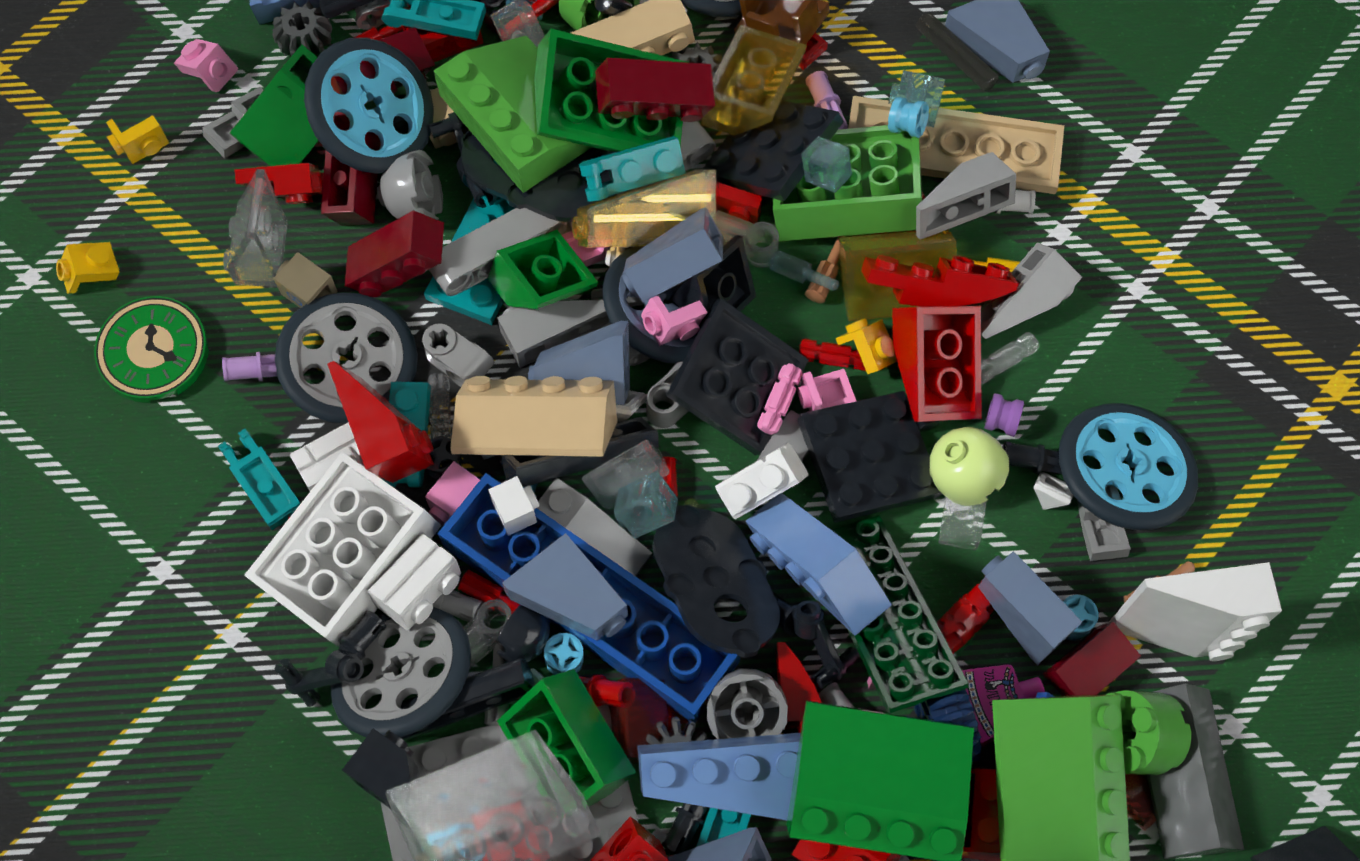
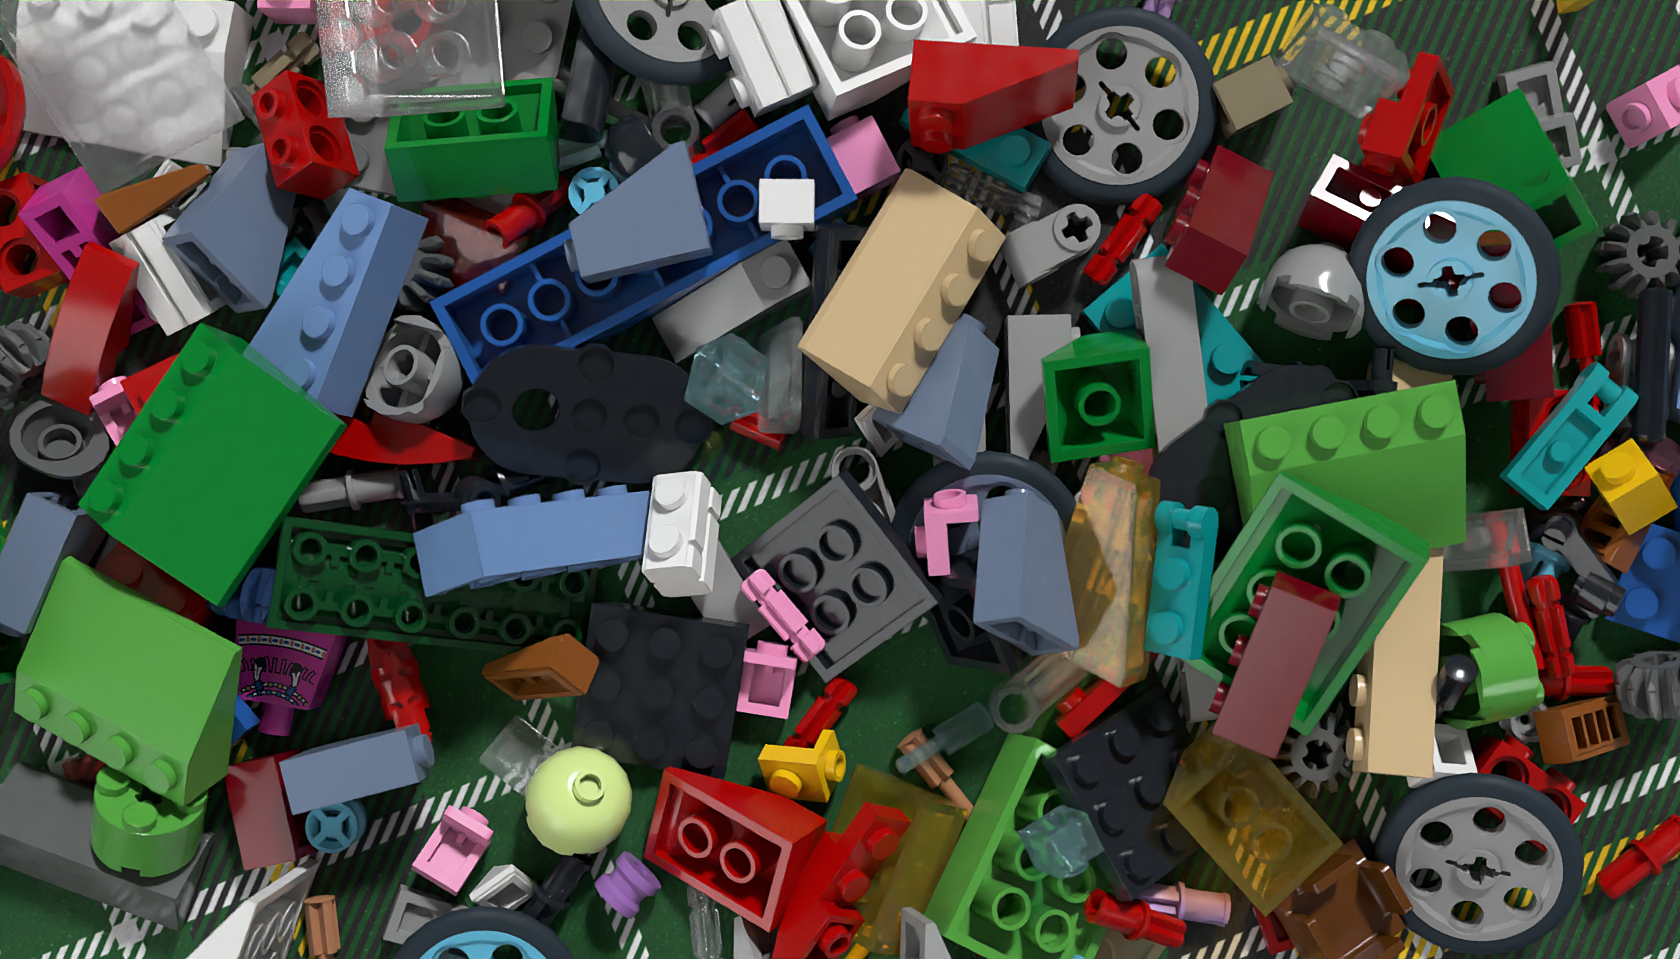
camera: 115 degrees right, 20 degrees up
(428, 316) = (1122, 239): none -> red axle
(851, 113) = (1134, 919): none -> red axle
(895, 520) = (544, 670): none -> dark orange slope
(1046, 532) = (454, 848): none -> bright pink bracket

